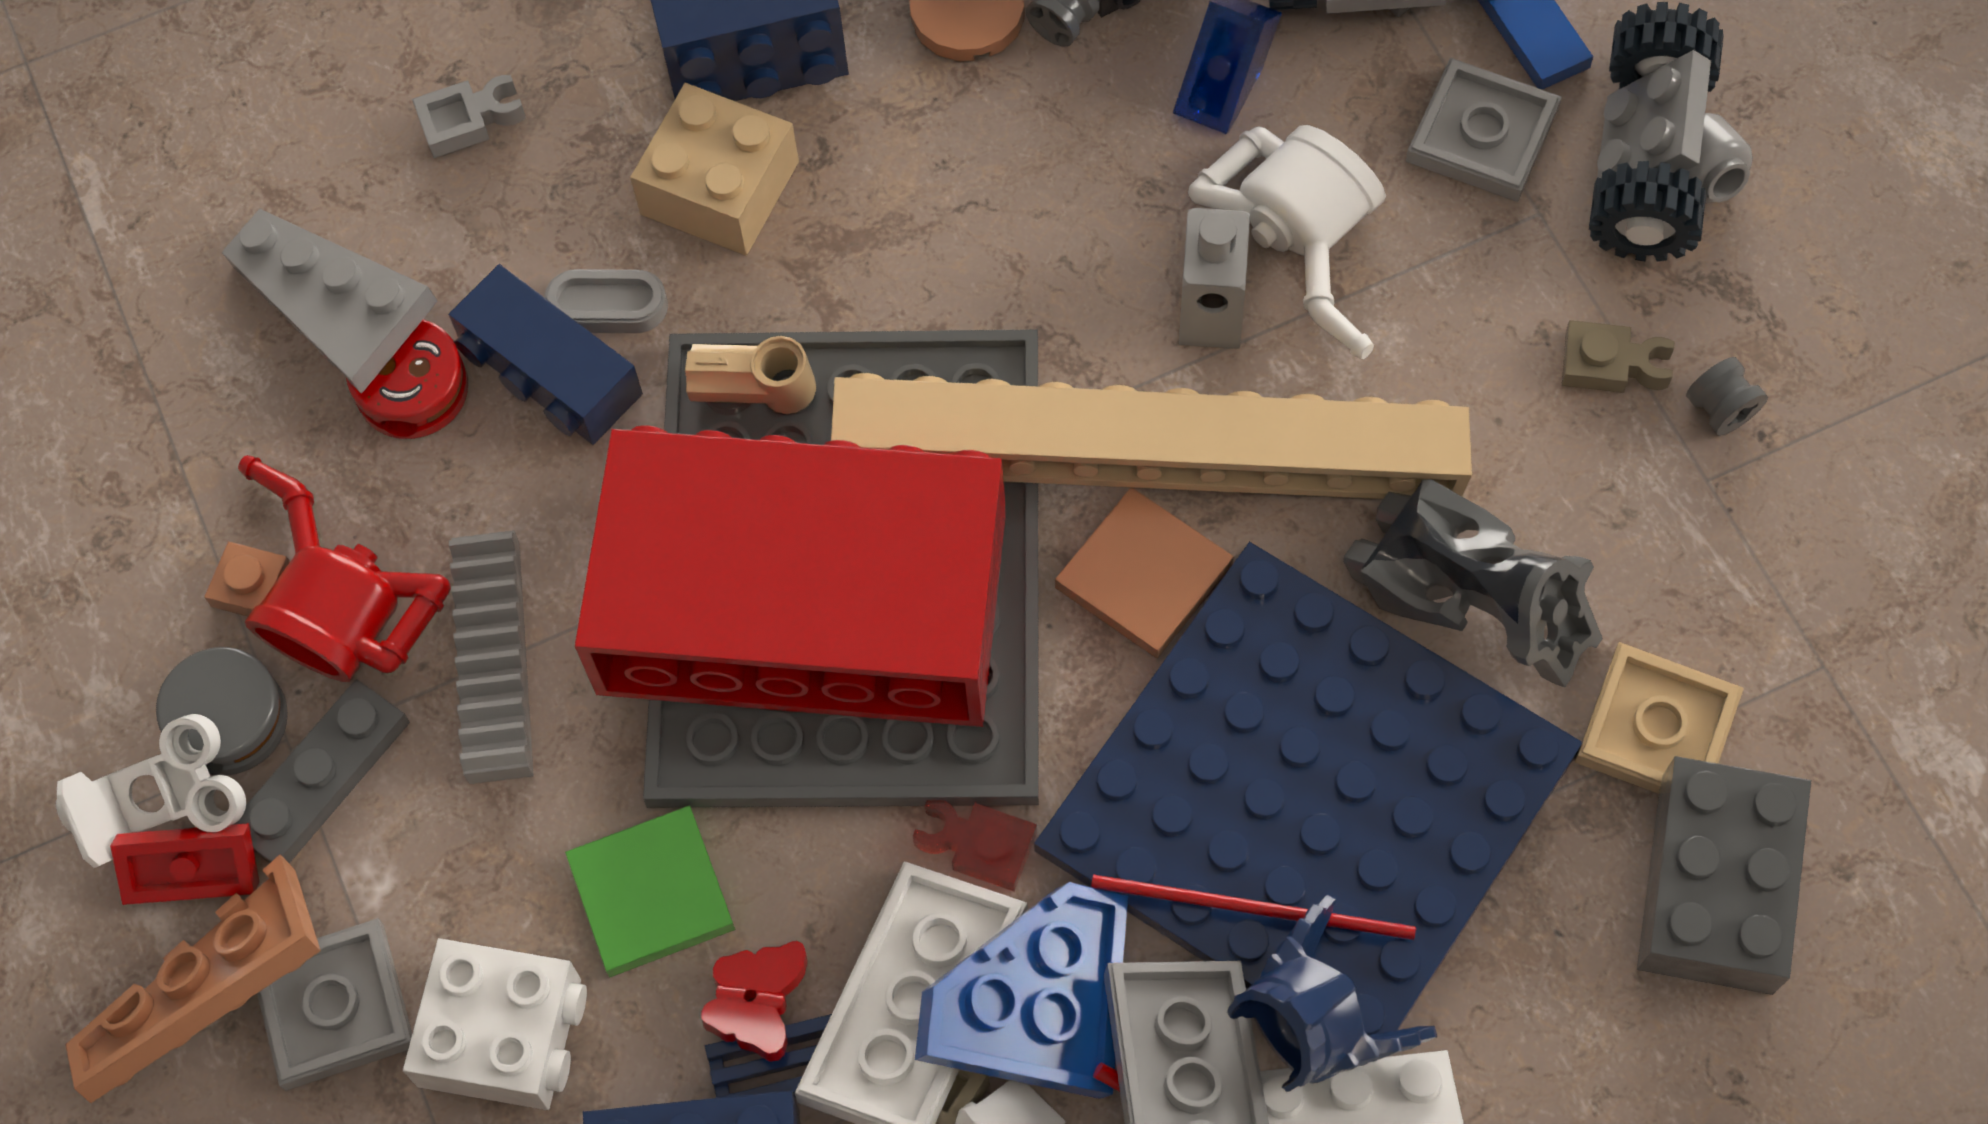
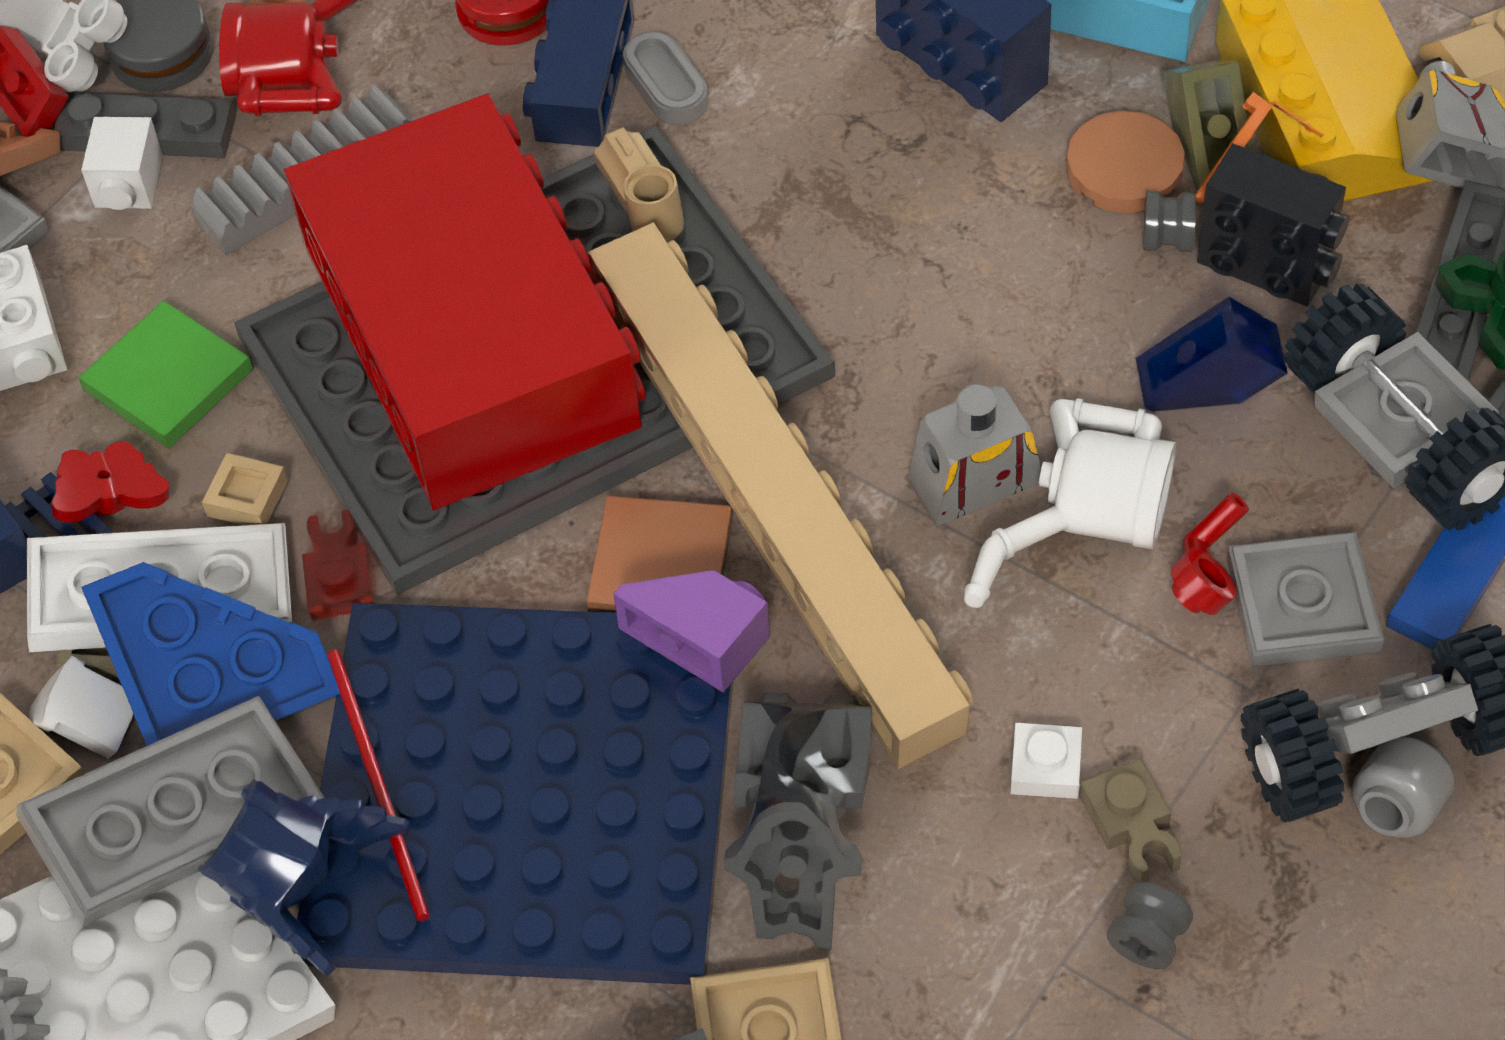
camera: 60 degrees right, 10 degrees down
(367, 813) = (122, 162): none -> white brick
(715, 168) = (827, 73): tan brick -> none
(846, 879) = (244, 490): none -> tan plate
(1267, 565) = (697, 622): none -> medium lavender slope
(1430, 186) = (1197, 576): none -> red plate
(1523, 389) = (1046, 760): none -> white plate

